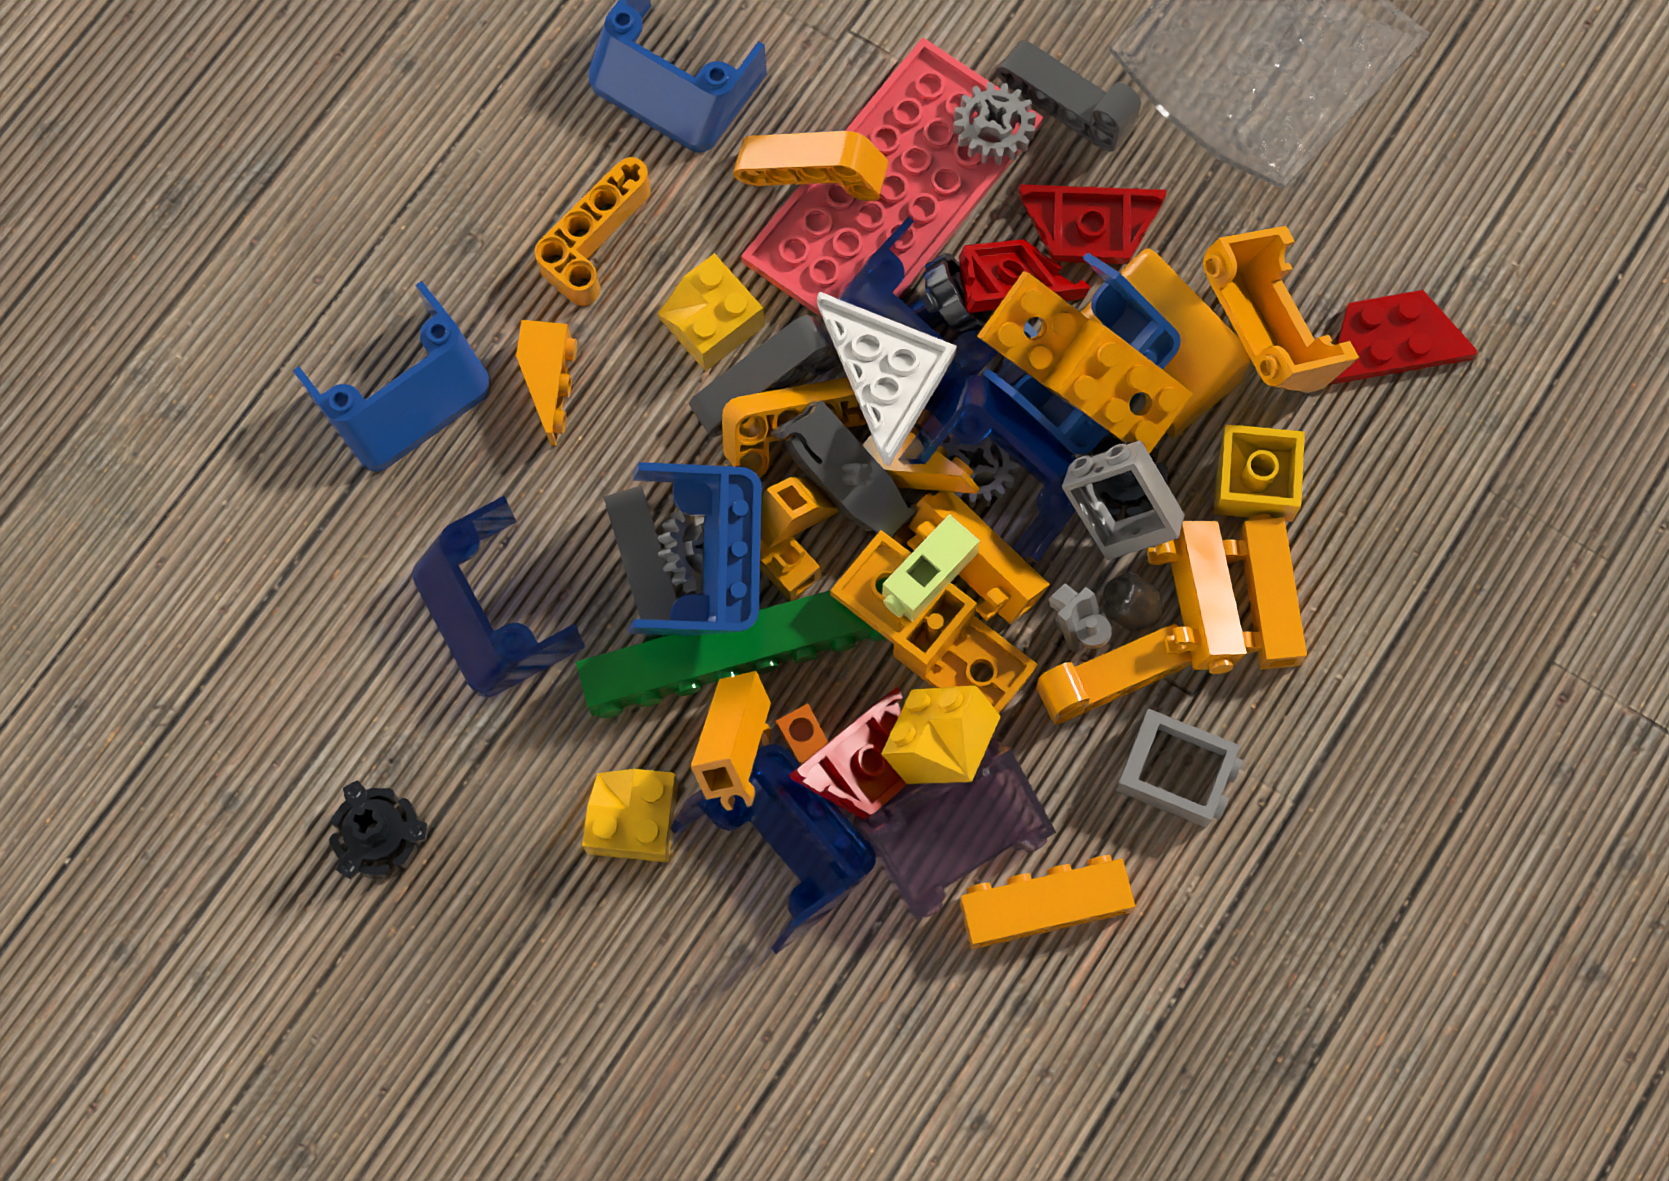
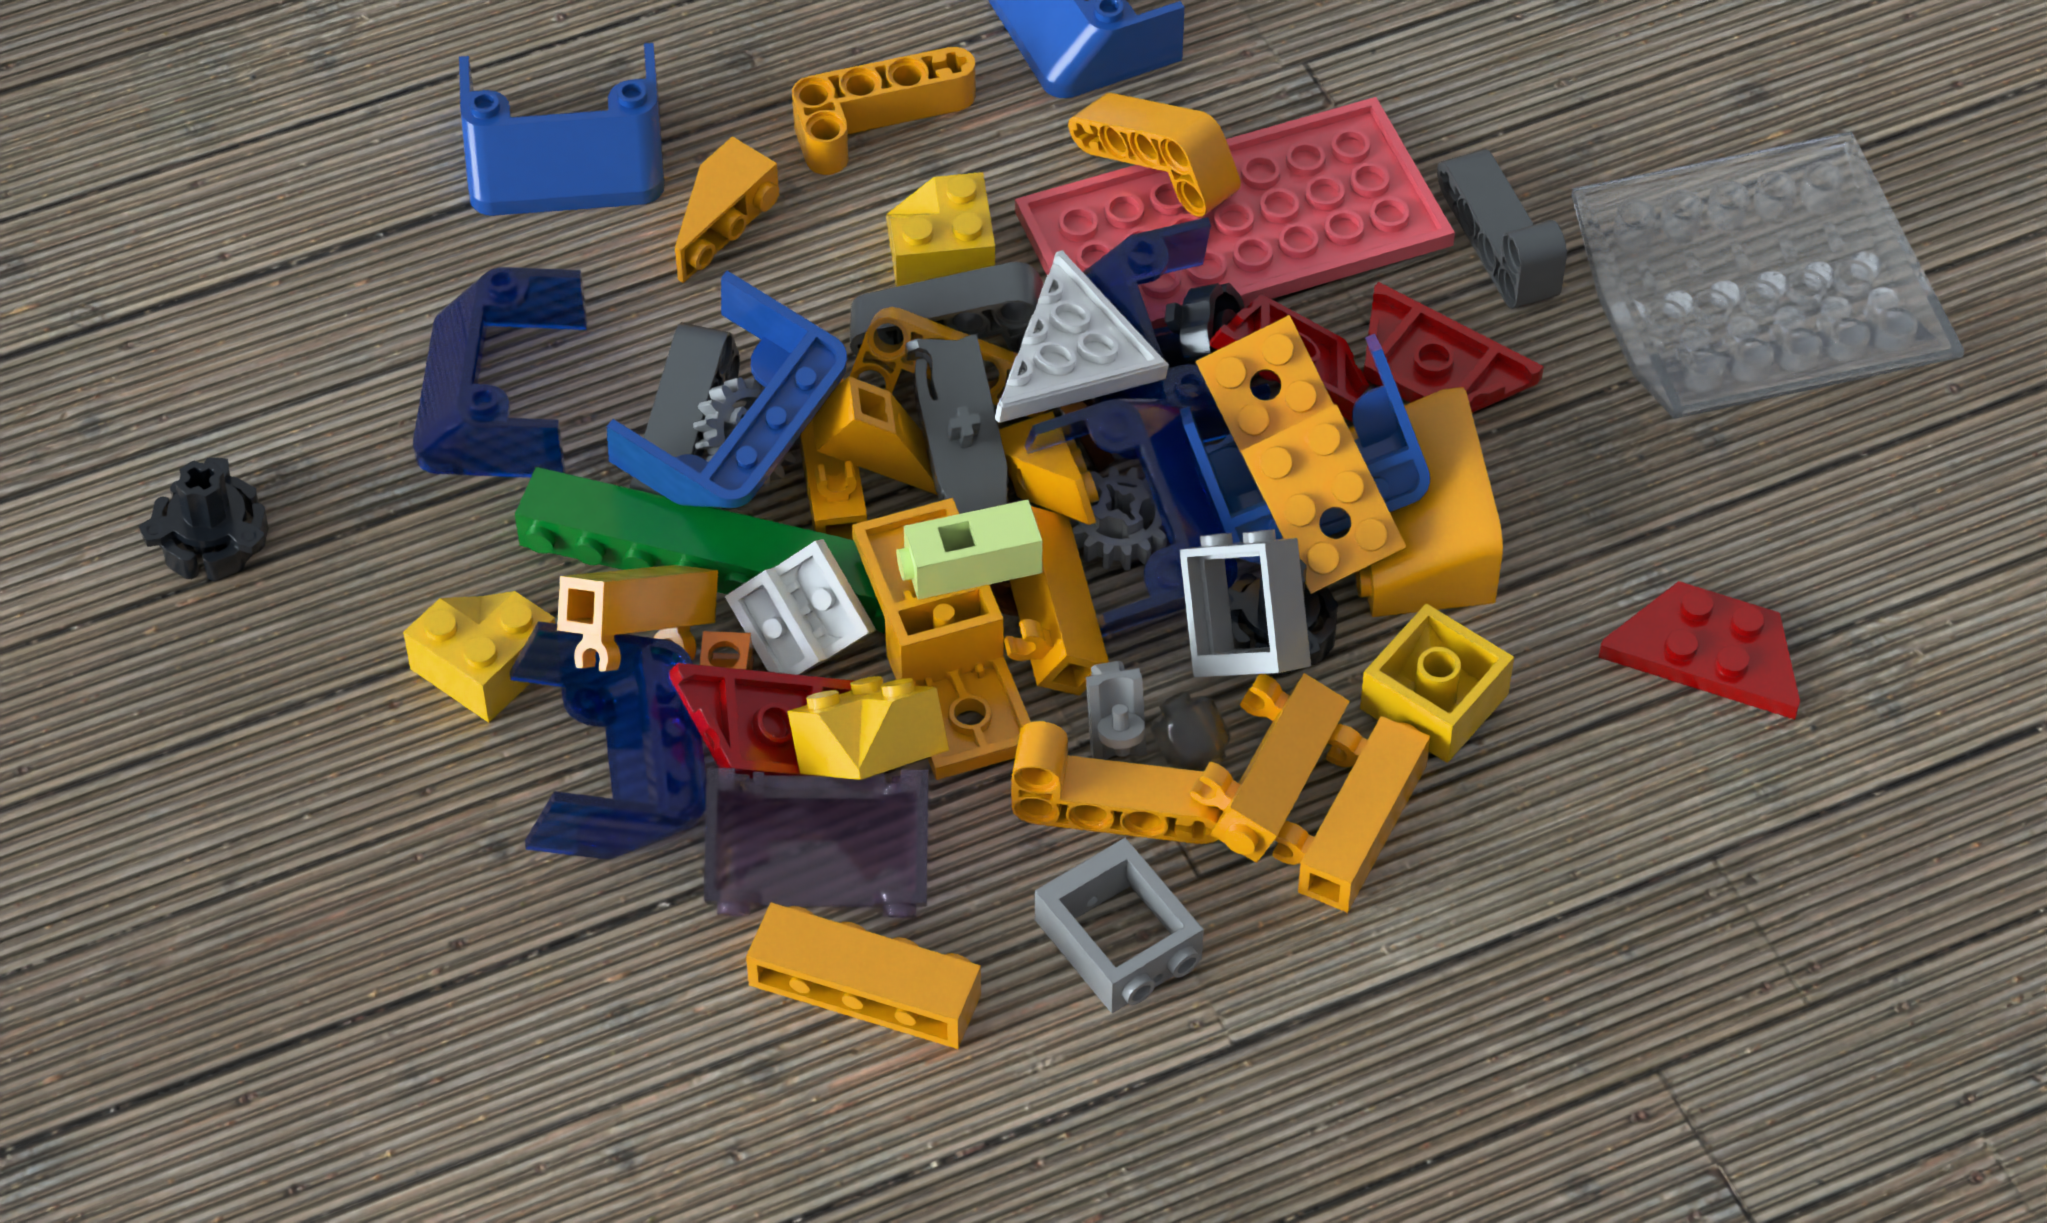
camera: 30 degrees right, 20 degrees down
(827, 666) = (800, 611): none -> white slope
(996, 136) = (1411, 209): light grey gear -> none
(1248, 281) = (1555, 519): light orange windscreen -> none

